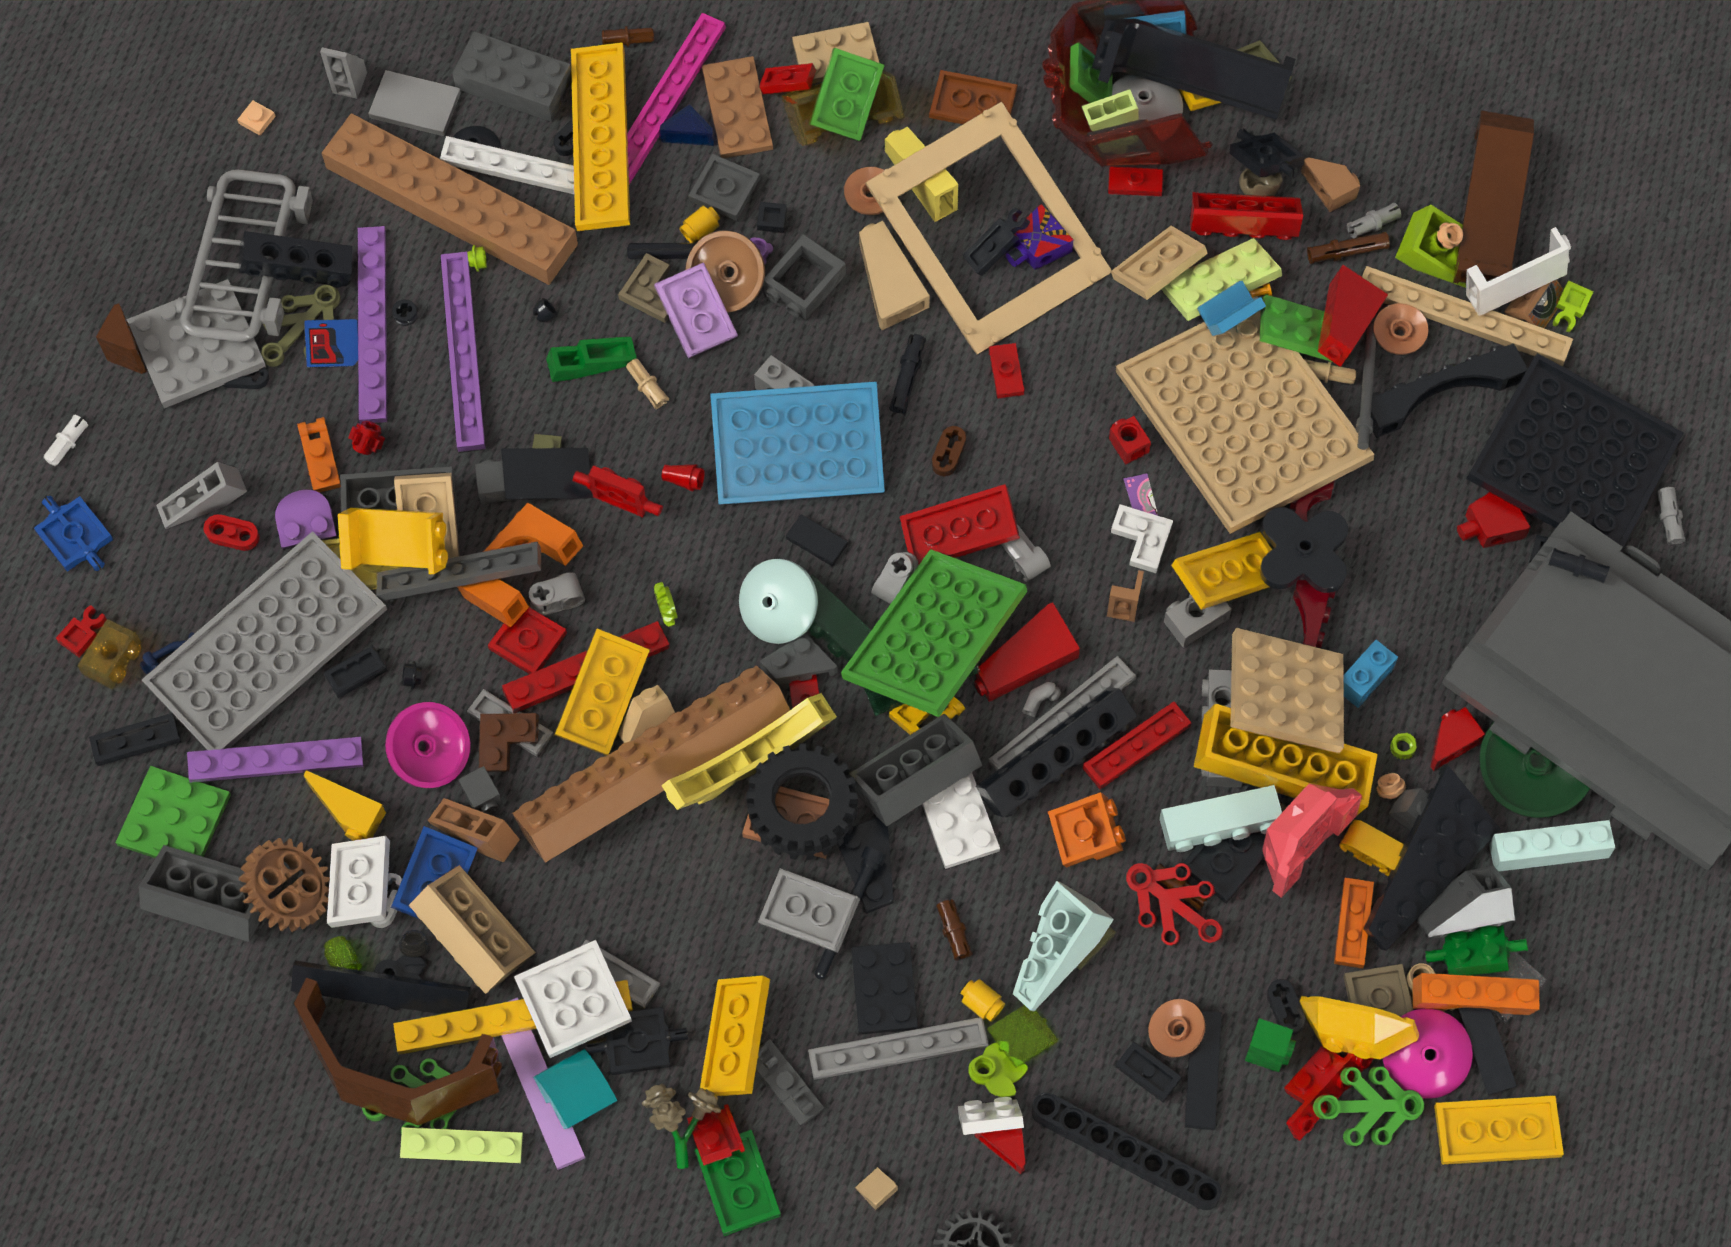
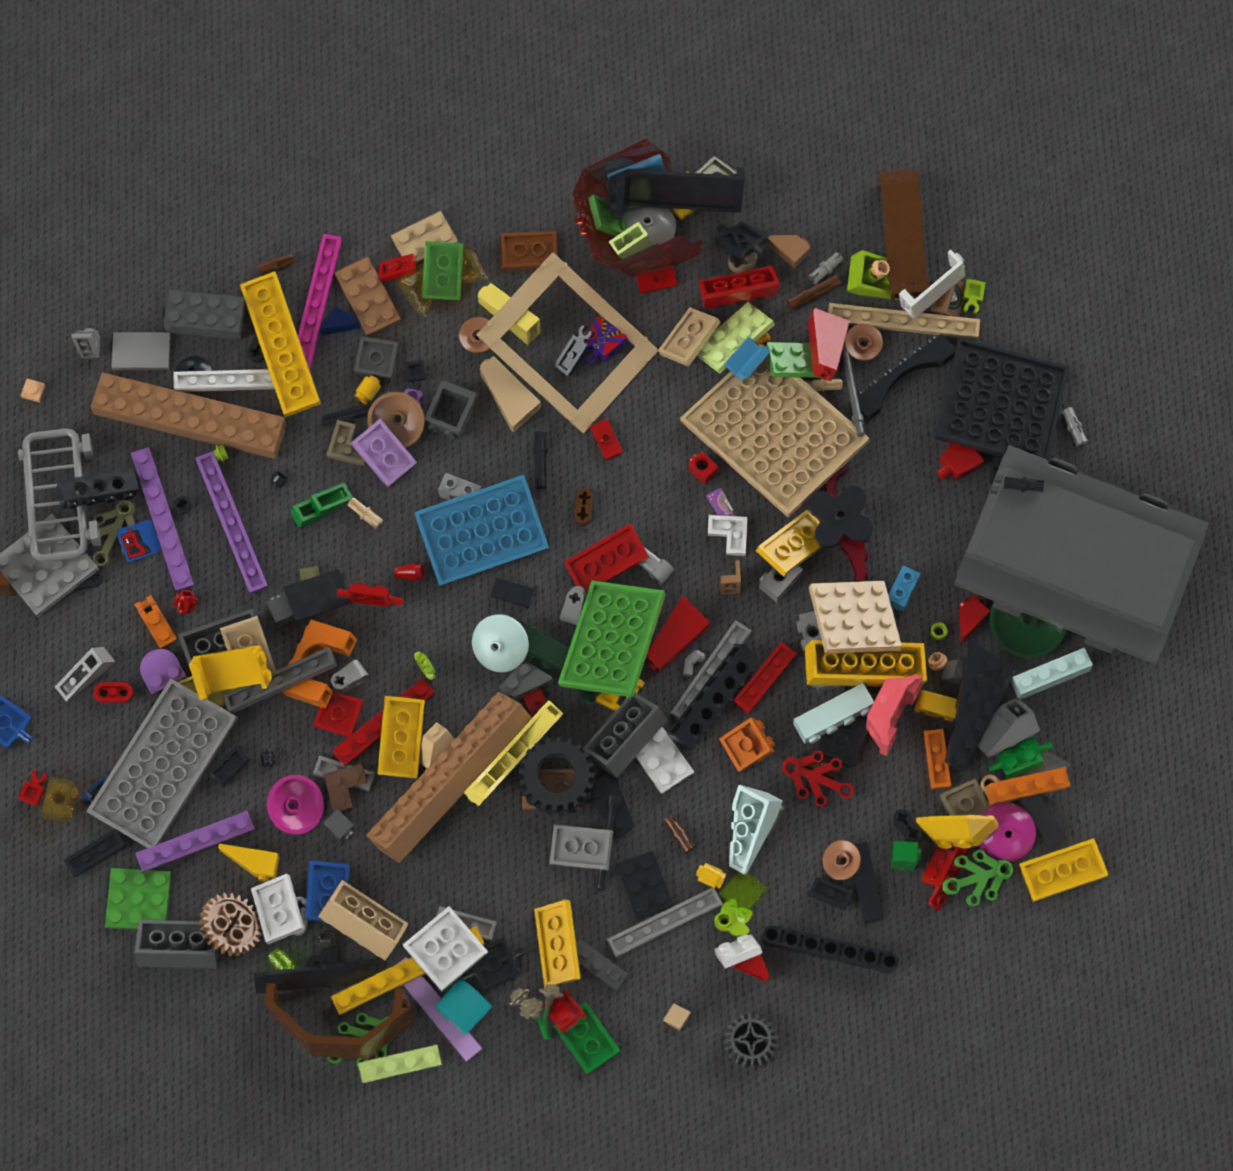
camera: 15 degrees left, 5 degrees up
(484, 831) = (344, 852): medium nougat slope -> none

